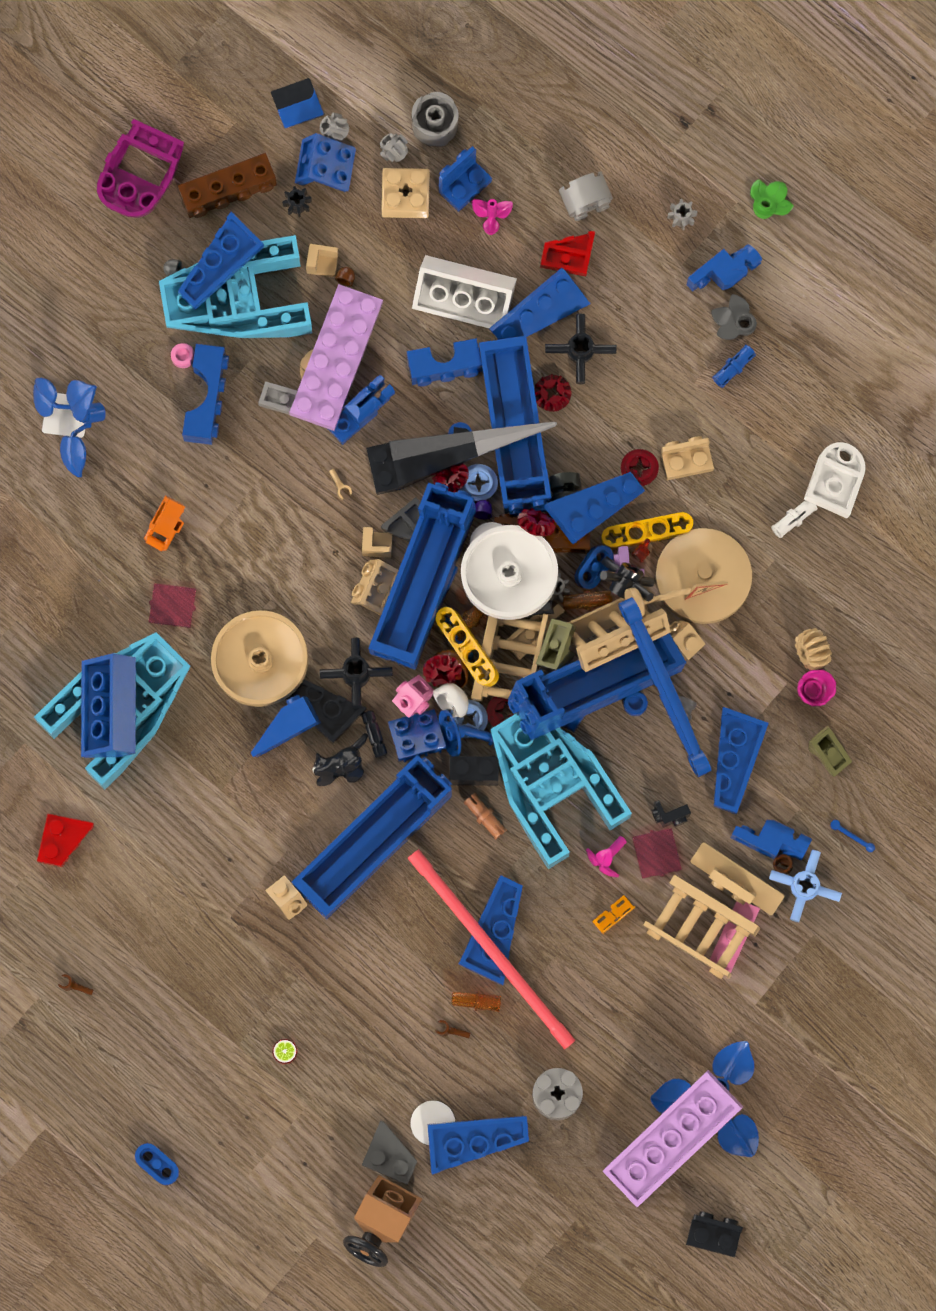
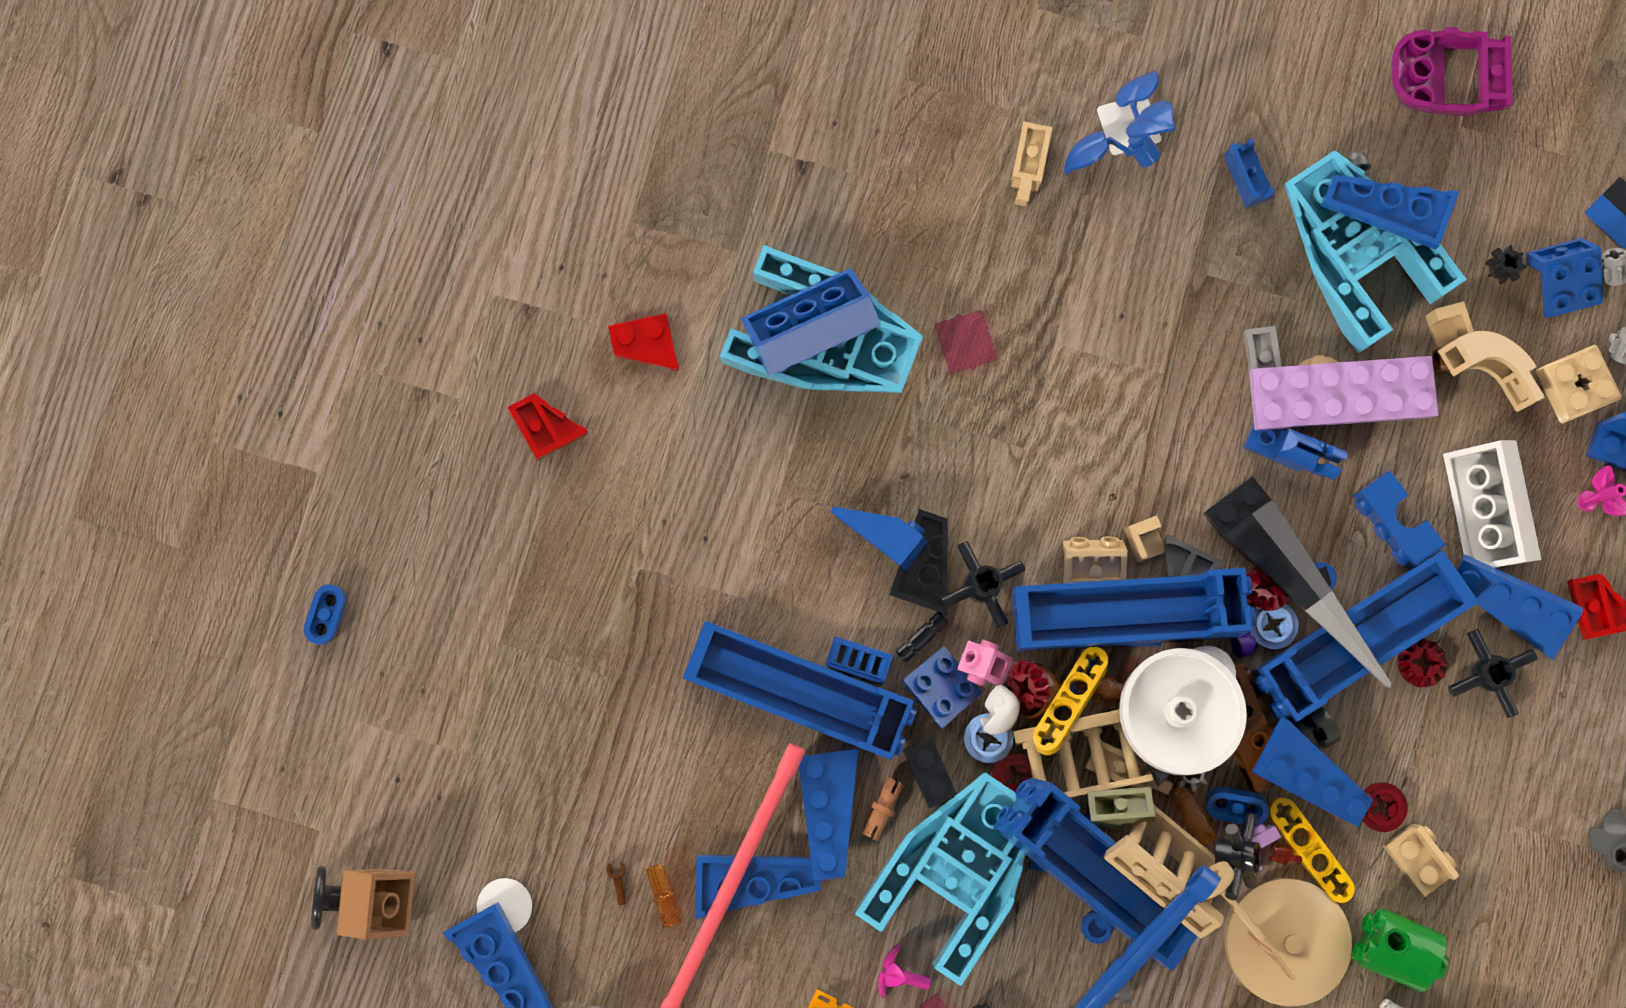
camera: 70 degrees right, 5 degrees up
(59, 498) = (1030, 160): none -> tan hinge
(76, 986) = (487, 432): reddish brown hand -> none
(91, 941) = (543, 426): none -> red wing
(145, 347) = (1248, 174): none -> blue hinge
(166, 523) = (1055, 290): orange piece -> none
(182, 355) = (1260, 220): bright pink tile -> none
(201, 423) = (1191, 275): blue arch -> none
(227, 185) = (1485, 178): reddish brown brick -> none
(259, 658) = (948, 467): tan dish -> none
(284, 1051) = (513, 700): tile -> none
(286, 897) = (688, 622): tan bracket -> none
(339, 484) = (1193, 467): tan hand -> none
(343, 764) = (870, 618): black animal -> none
(362, 238) = (1500, 359): none -> tan arch
(378, 765) = (883, 668): none -> blue slope
(389, 1156) = (444, 873): dark grey wing -> none
(454, 732) = (963, 730): blue dish -> none
(463, 853) = (828, 807): none -> blue wing
(528, 518) = (1254, 706): dark red gear -> none
(686, 638) = (1202, 956): tan bracket -> none
(734, 366) = (1561, 866): blue pin -> none
(740, 501) = (1401, 950): none -> green cylinder

